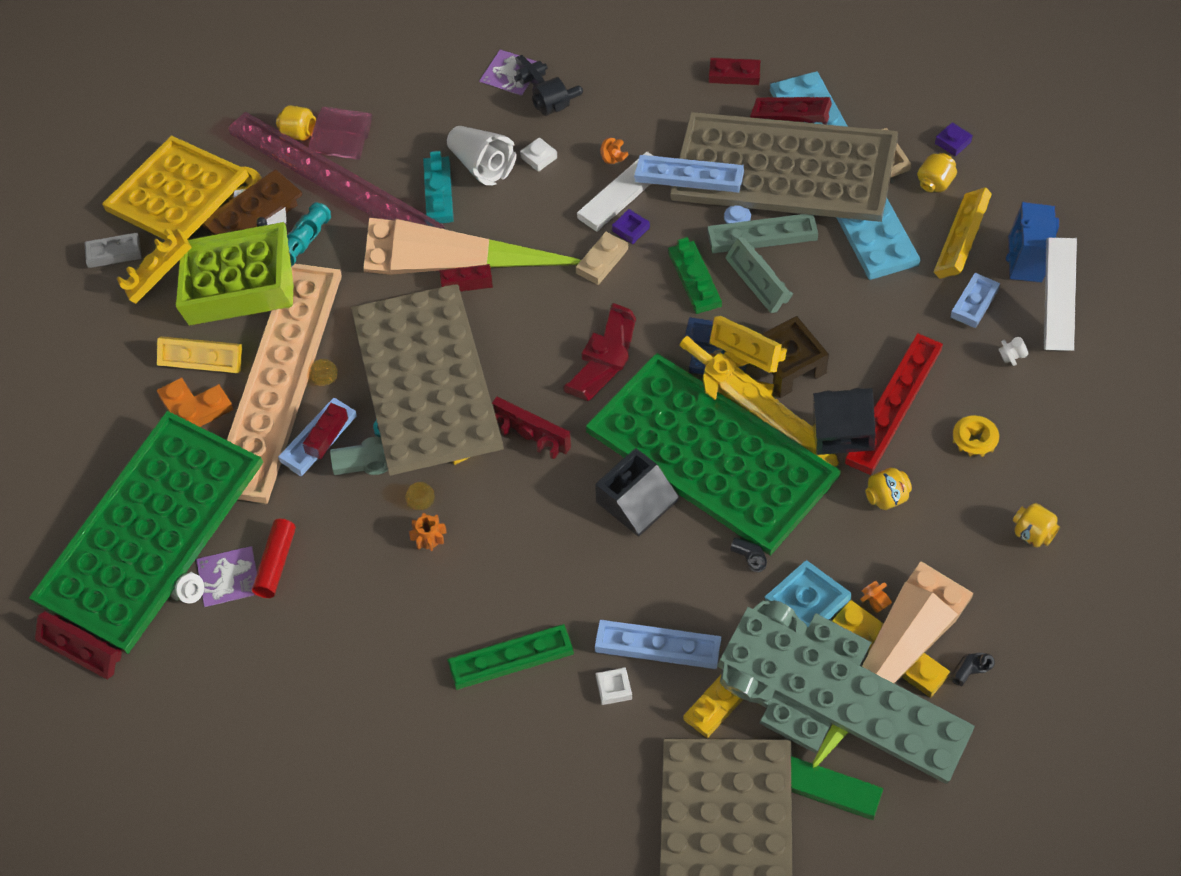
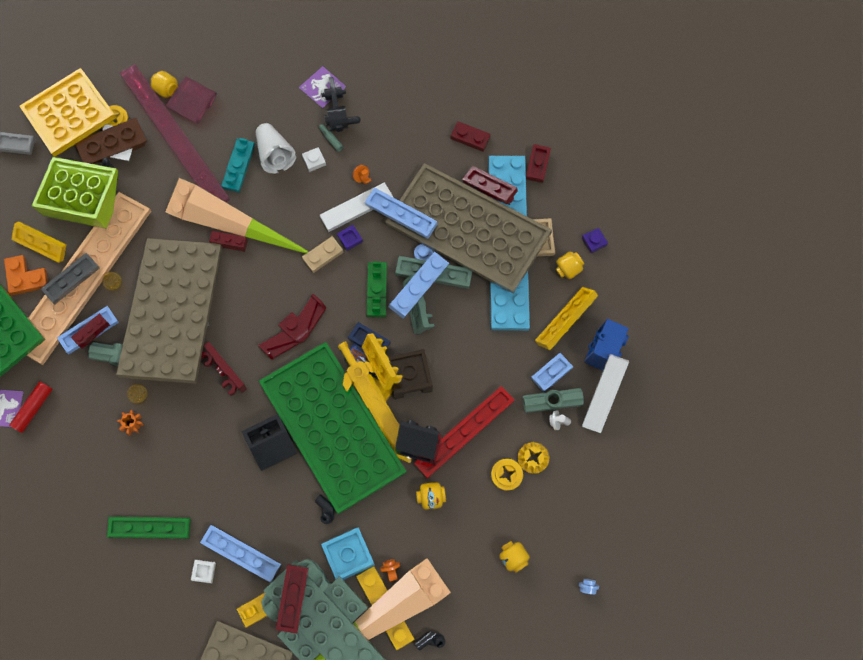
camera: 15 degrees right, 15 degrees up
(155, 265) = (32, 167): yellow plate -> none
(267, 379) = (70, 278): none -> dark grey plate
(307, 229) = (133, 174): teal piece -> none
(551, 124) = (331, 138): none -> sand green pin
(753, 245) = (418, 285): none -> light blue plate
(770, 645) = (292, 598): none -> dark red plate
(838, 74) = (538, 163): none -> dark red plate
(993, 330) = (565, 399): none -> sand green piece
(1005, 415) = (532, 466): none -> yellow gear
(1151, 531) = (588, 586): none -> light blue plate

